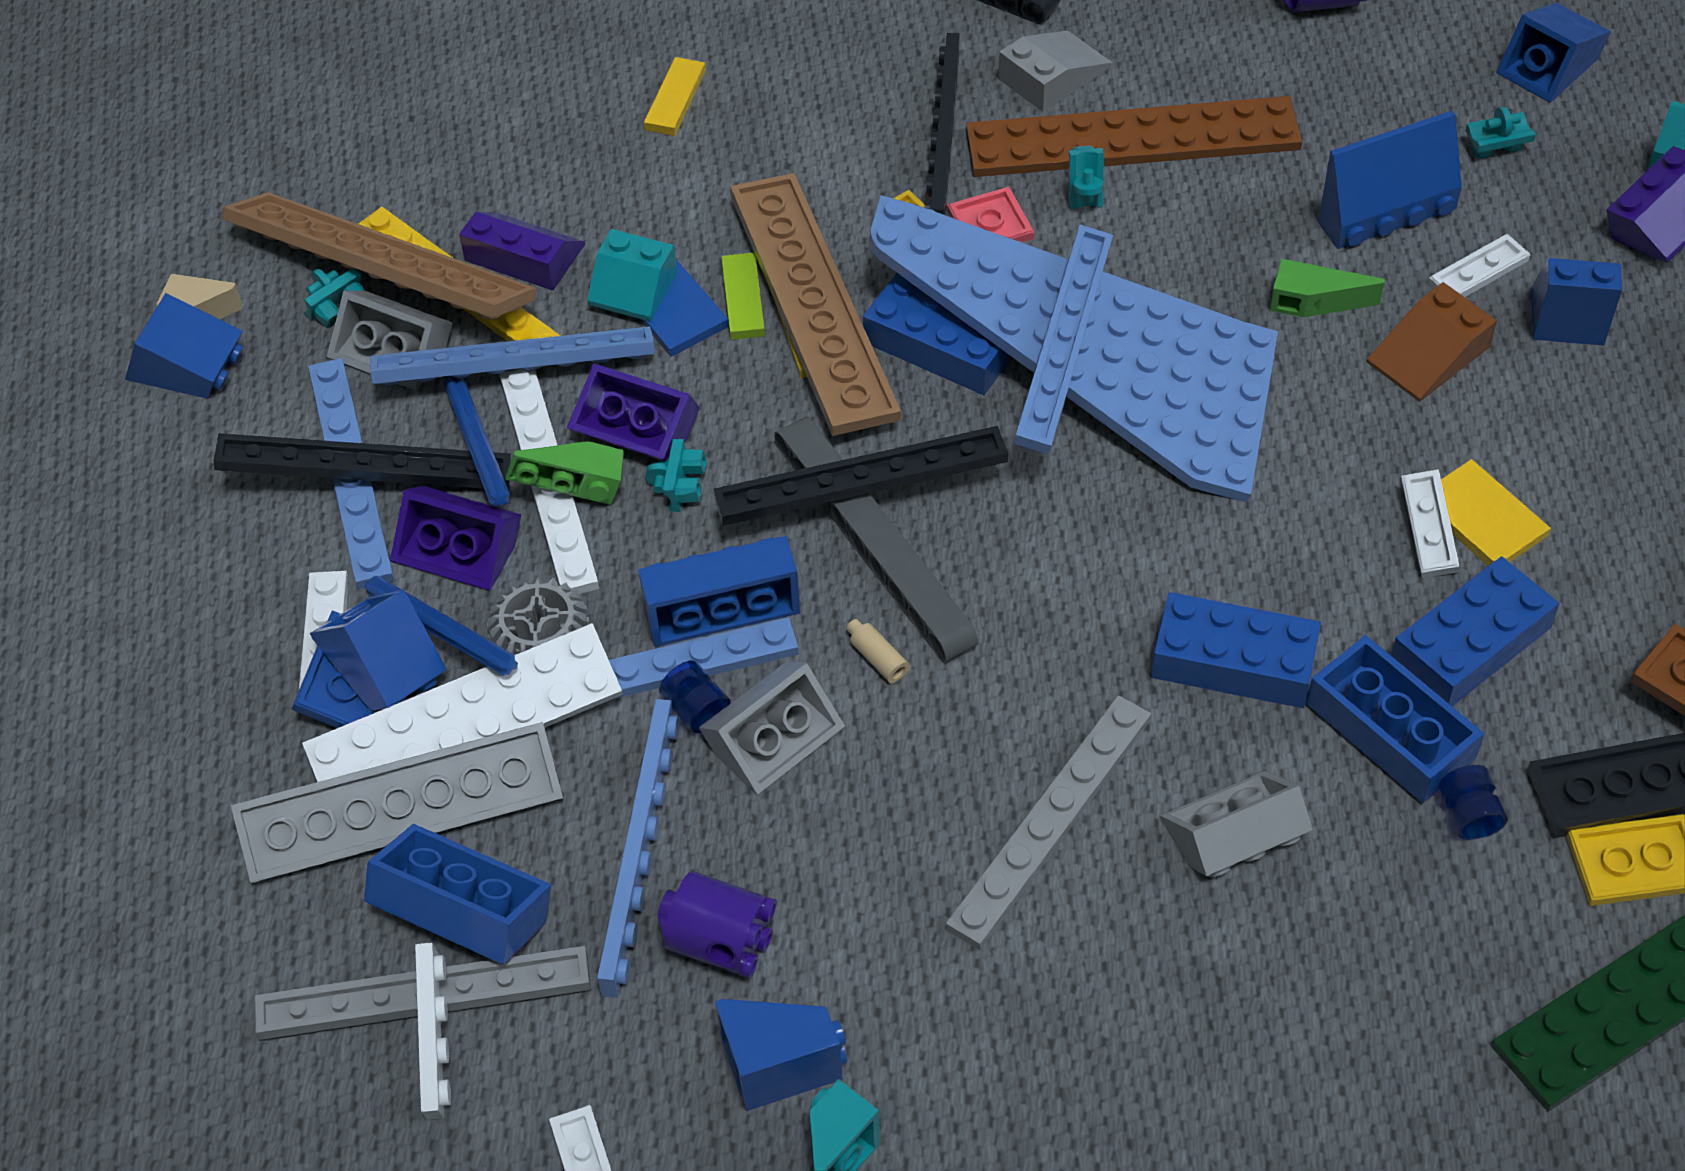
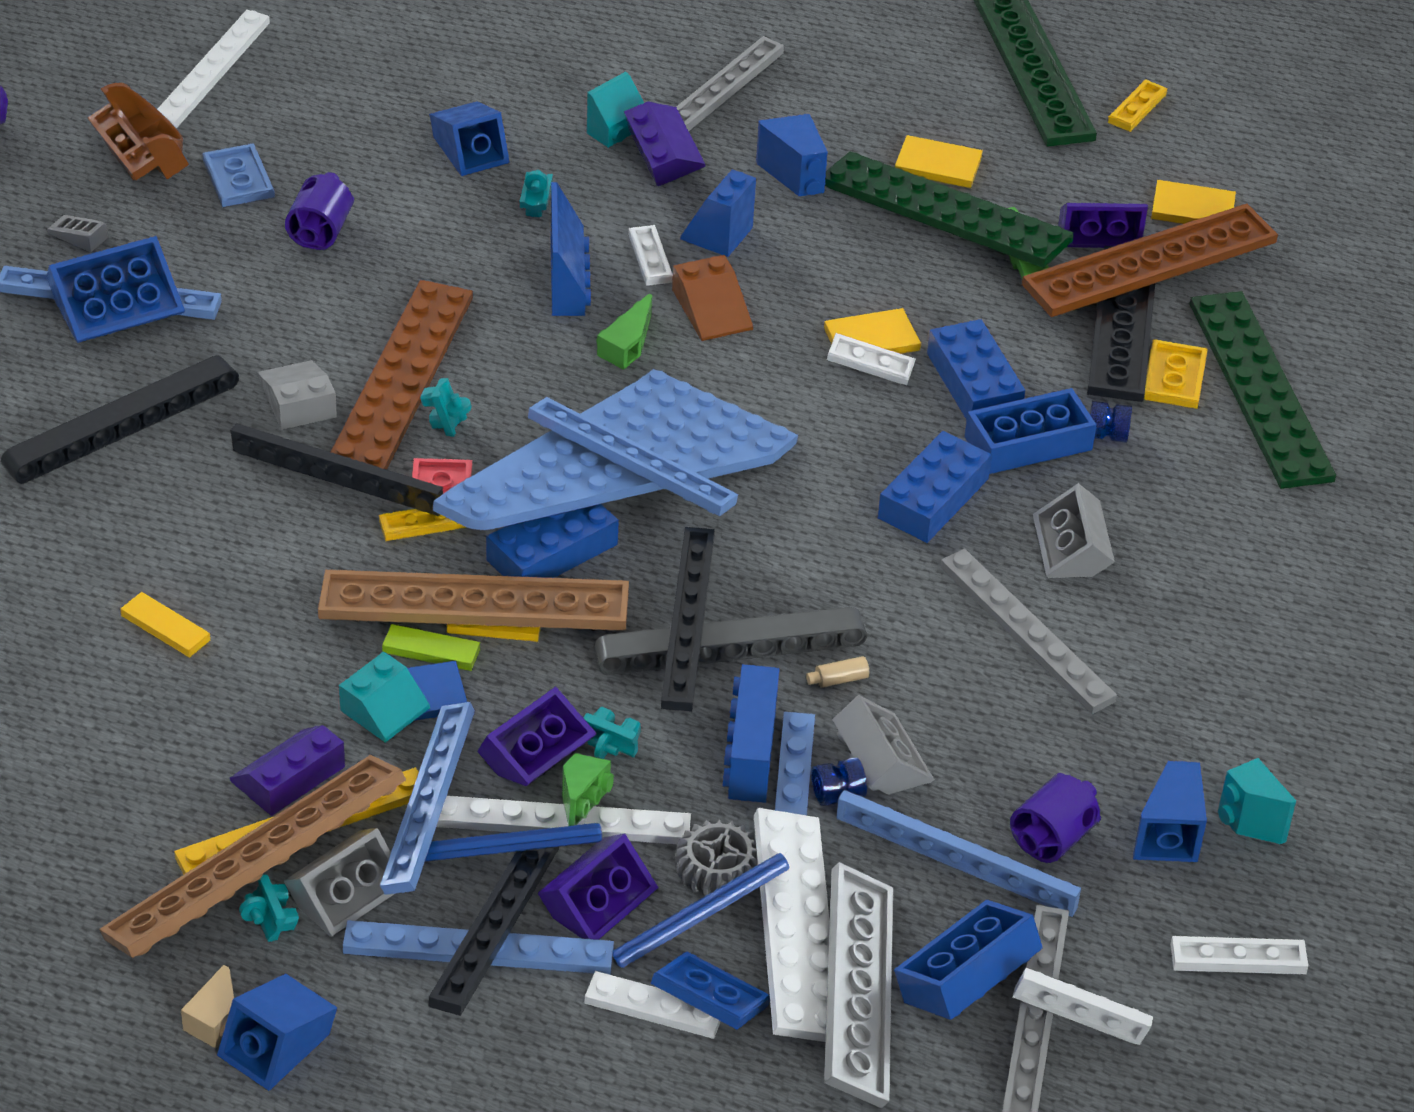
camera: 75 degrees left, 10 degrees down
(381, 649) = (708, 950): blue slope -> none

